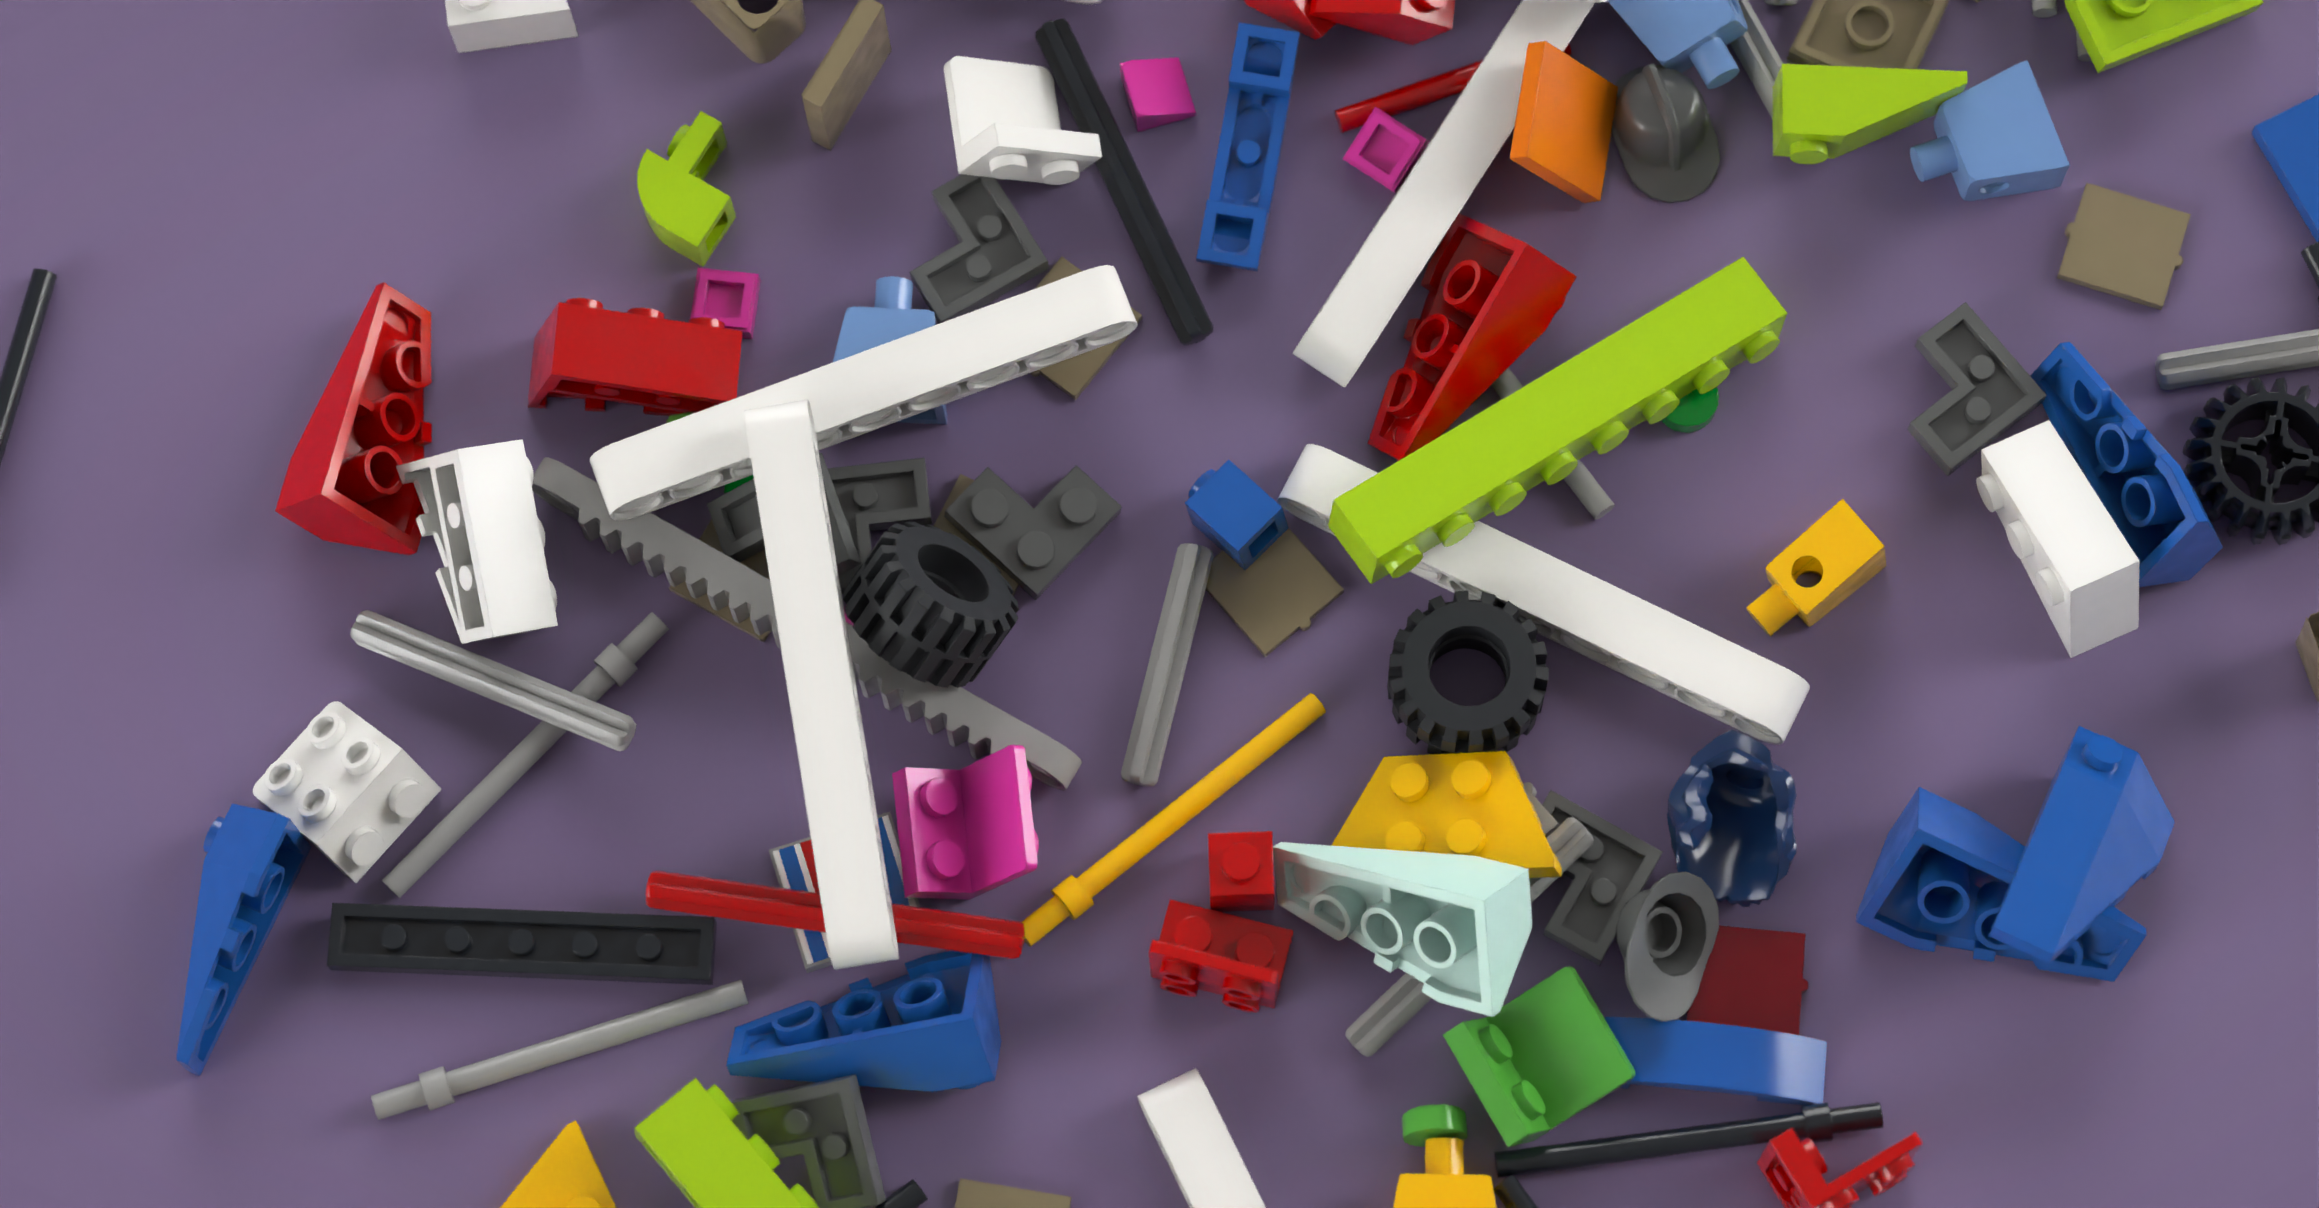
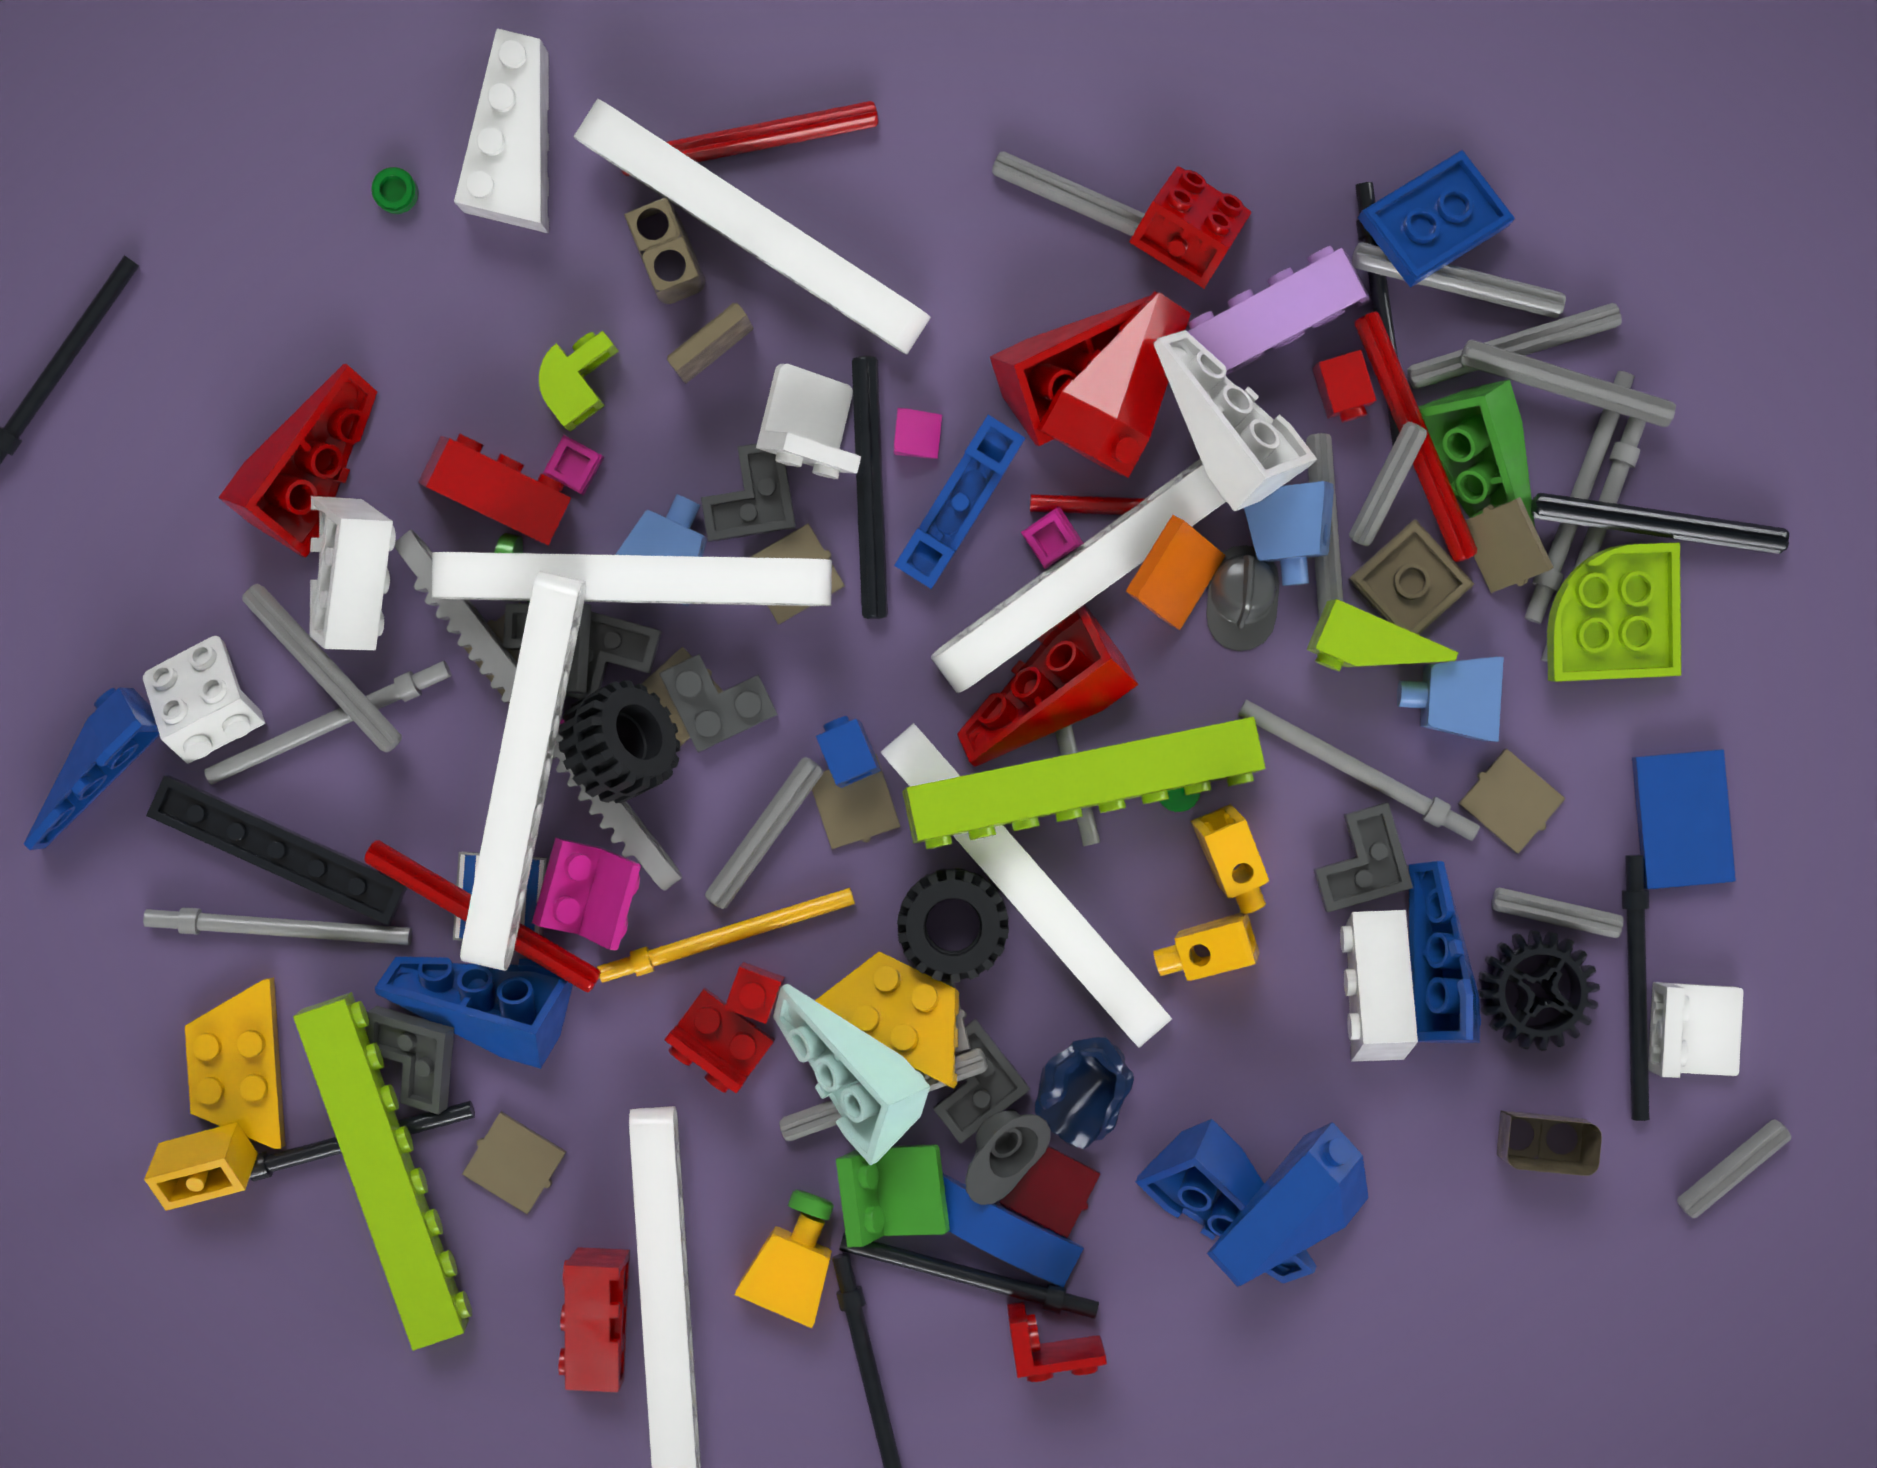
camera: 20 degrees right, 15 degrees up
(359, 57) = (394, 190): none -> green tile
(1784, 425) = (1227, 843): none -> yellow torso
(2030, 294) = (1433, 810): none -> light grey bar

